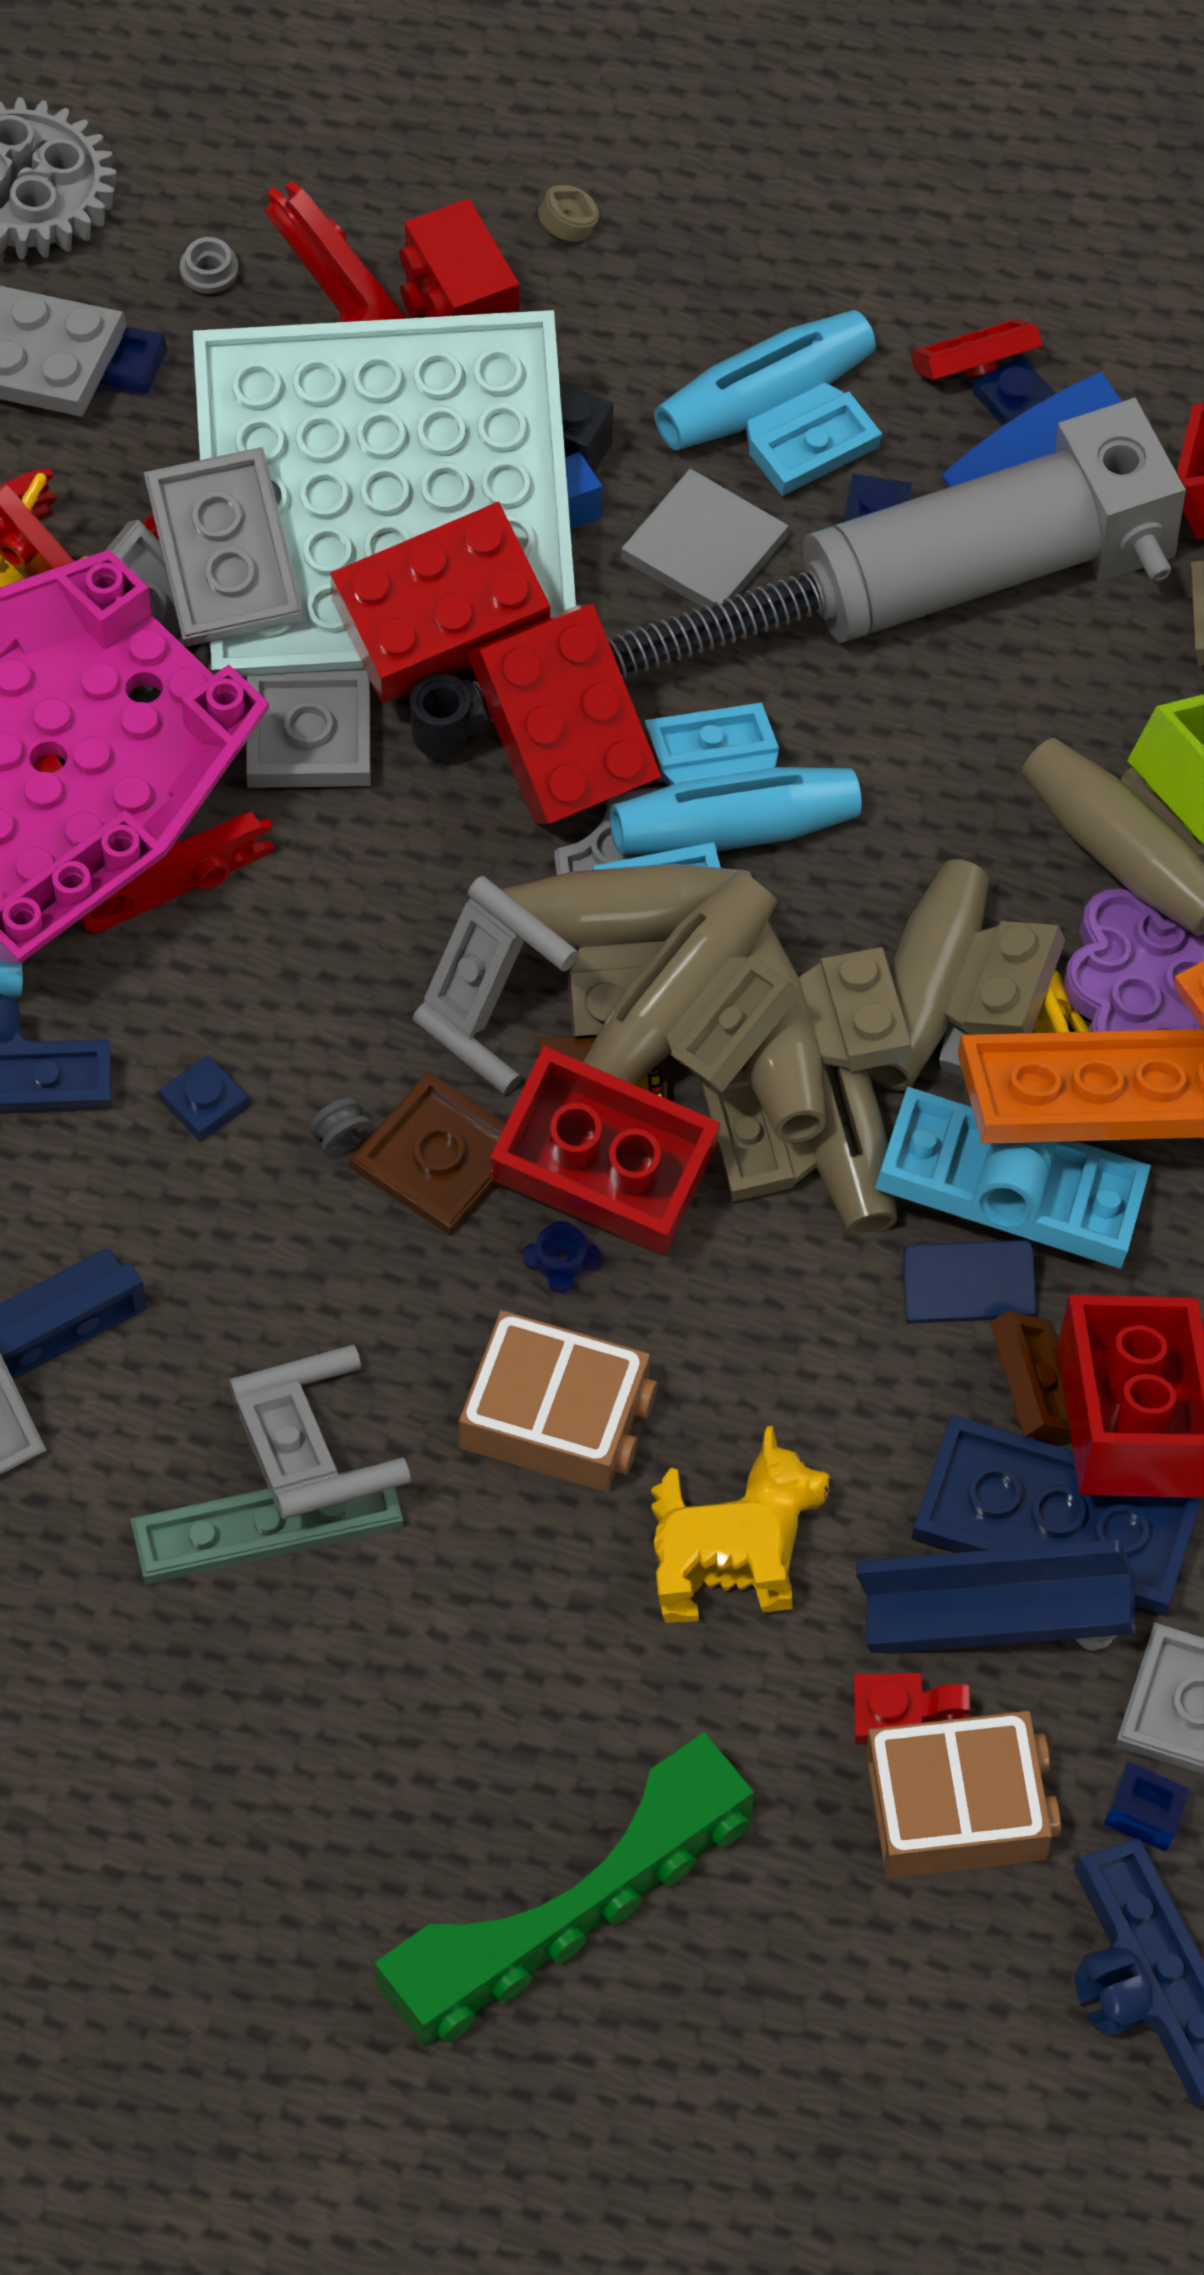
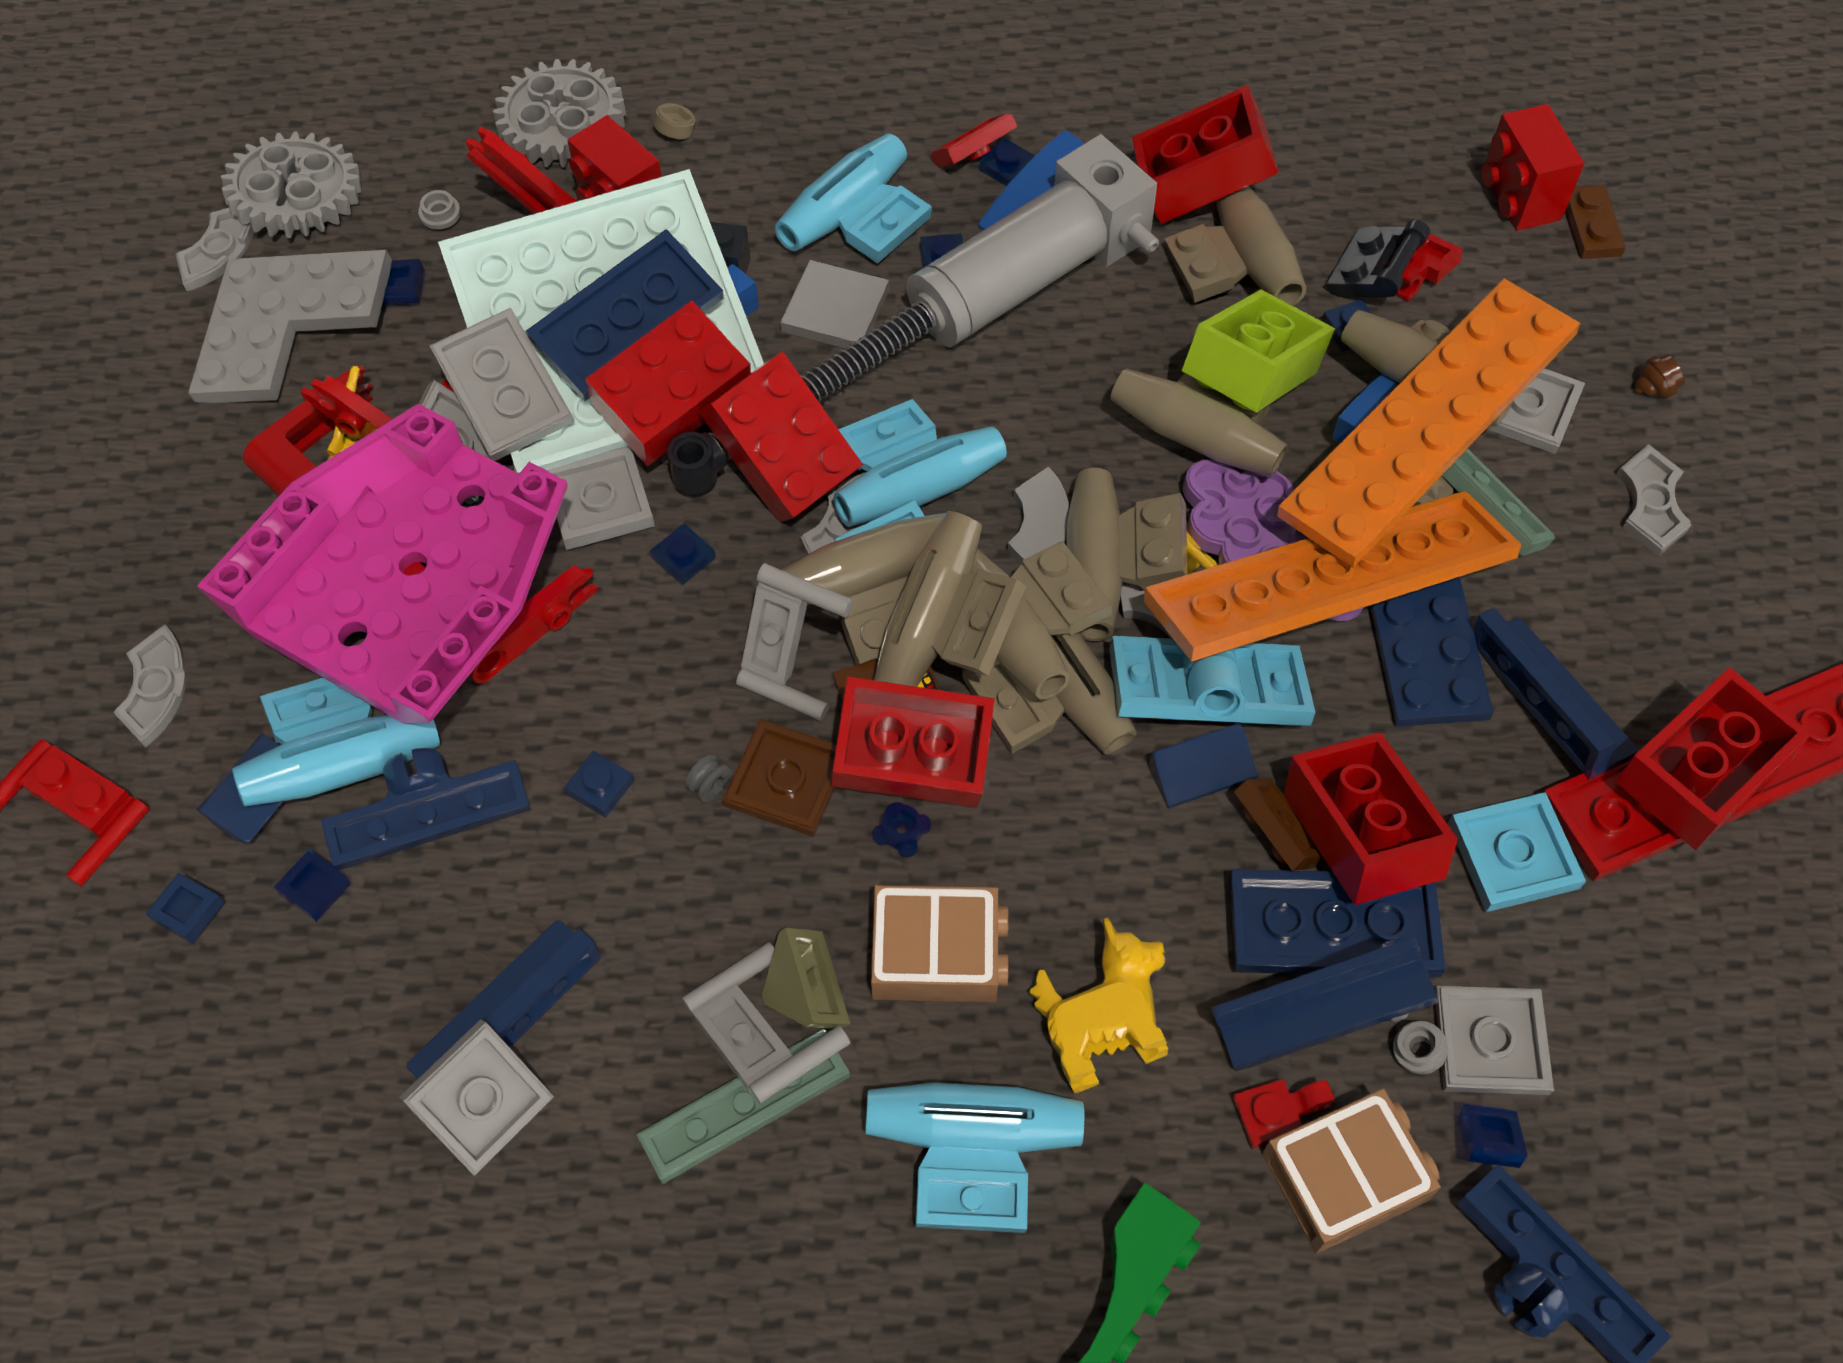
camera: 15 degrees left, 0 degrees up
(383, 1400) = (804, 981): none -> olive slope
(395, 832) = (683, 554): none -> clear blue plate
(409, 486) = (622, 309): none -> dark blue plate
(411, 156) = (553, 106): none -> light grey gear
(519, 1641) = (973, 1142): none -> medium azure plate
(885, 899) = (1043, 513): none -> light grey tile
(1101, 1669) = (1420, 1032): none -> light grey plate

